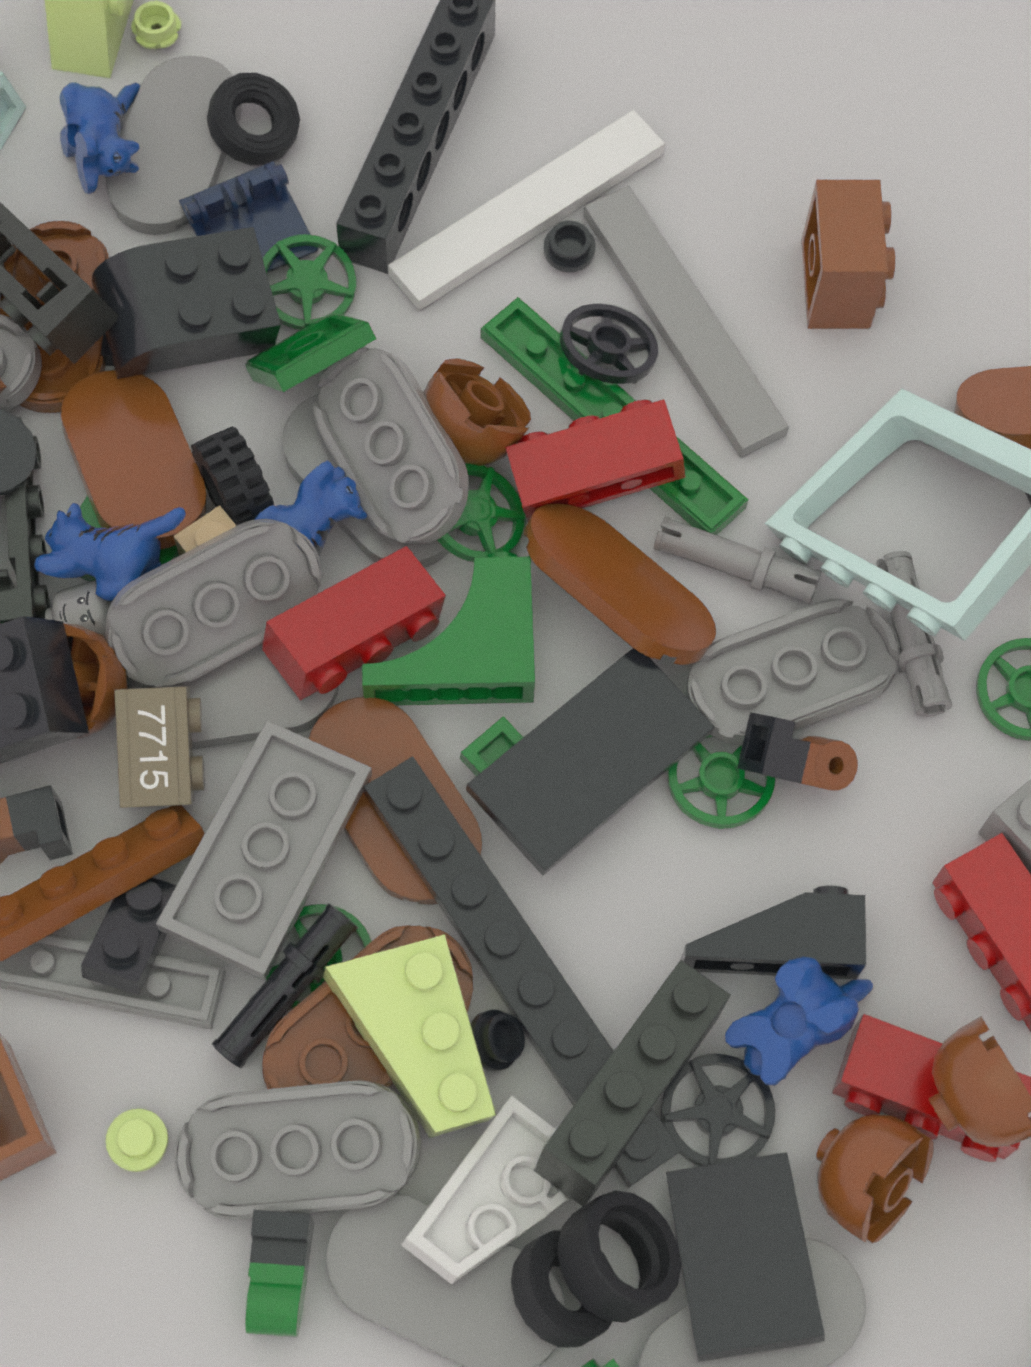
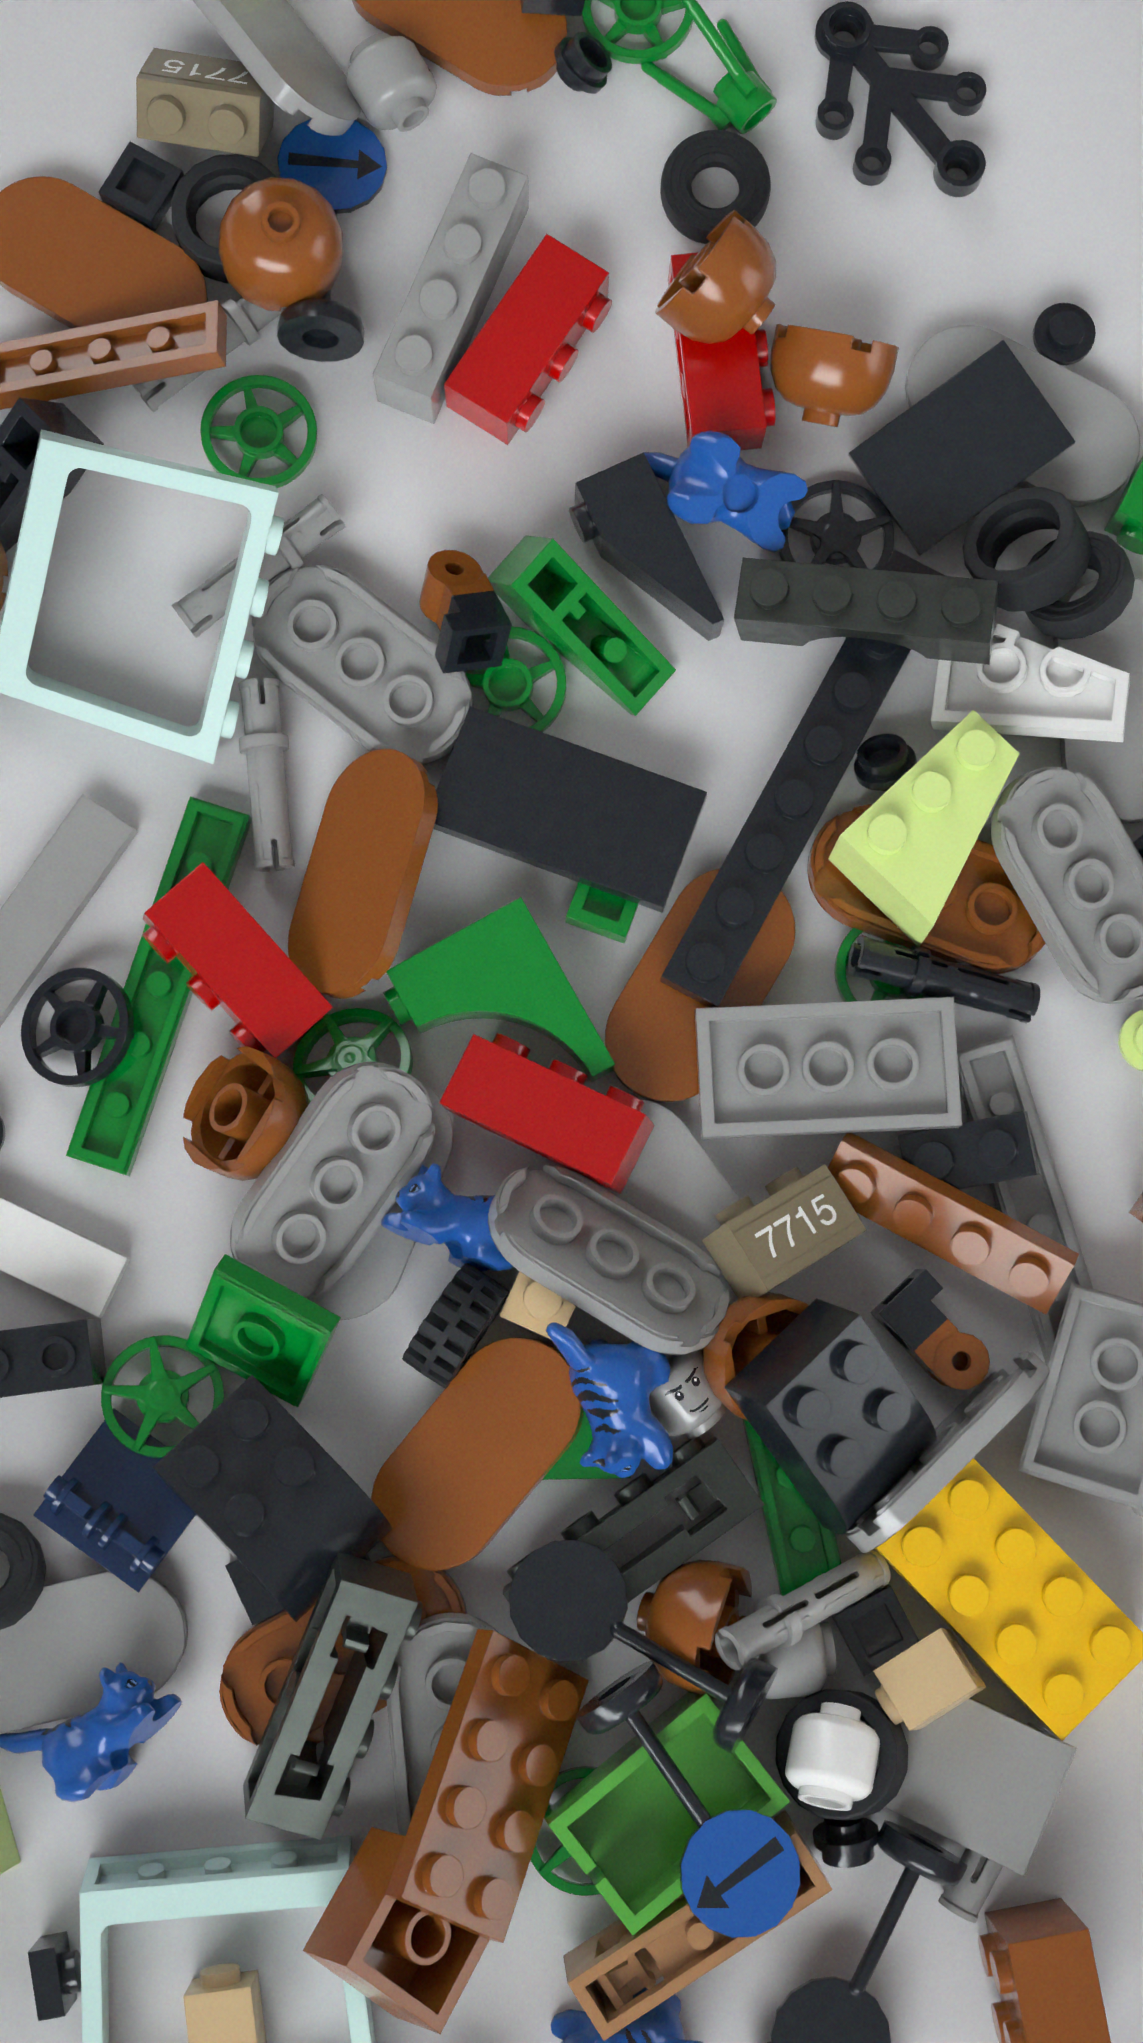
camera: 120 degrees left, 15 degrees up
(743, 850) = (580, 621): none -> green slope

